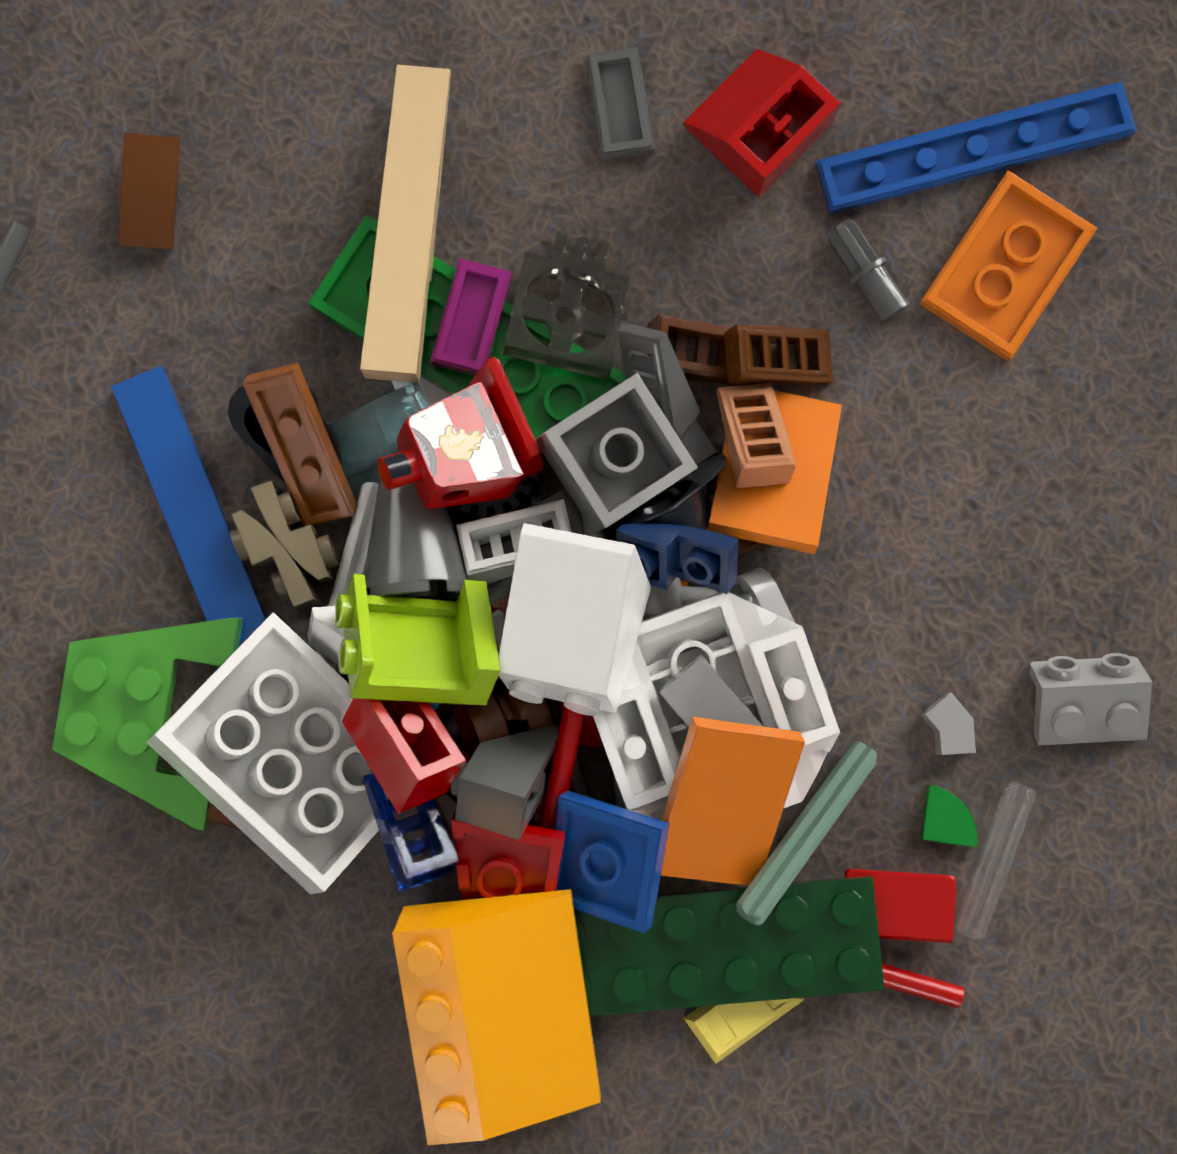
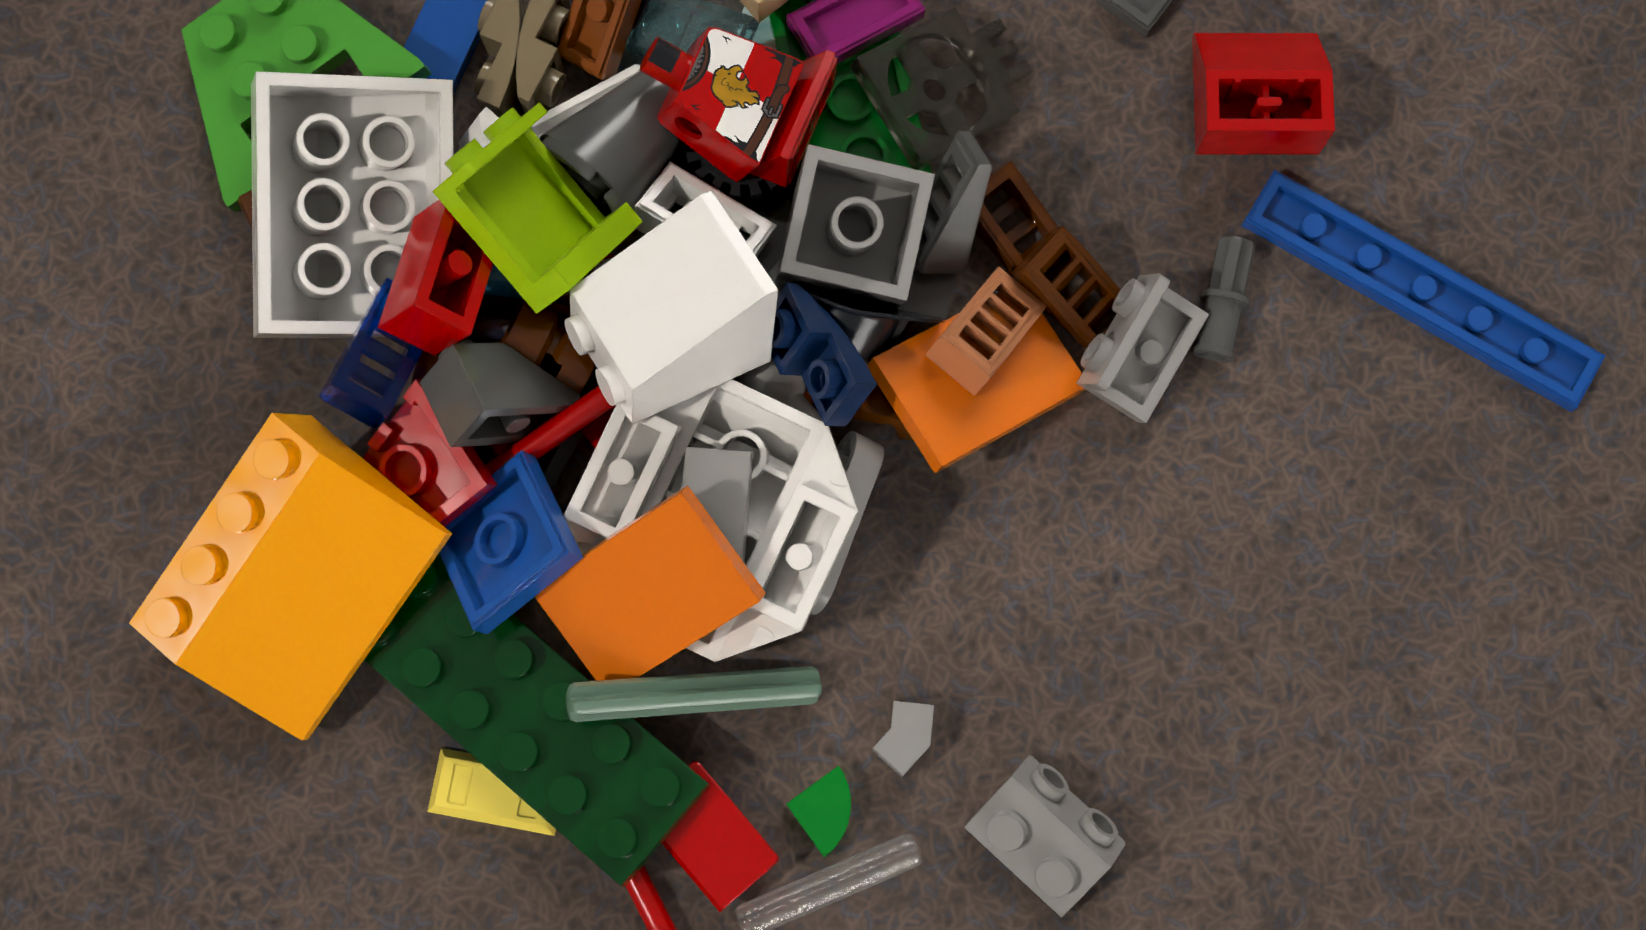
camera: 50 degrees right, 5 degrees down
(851, 350) = (1141, 346): none -> light grey bracket
(1008, 266) = (1350, 412): orange tile -> none

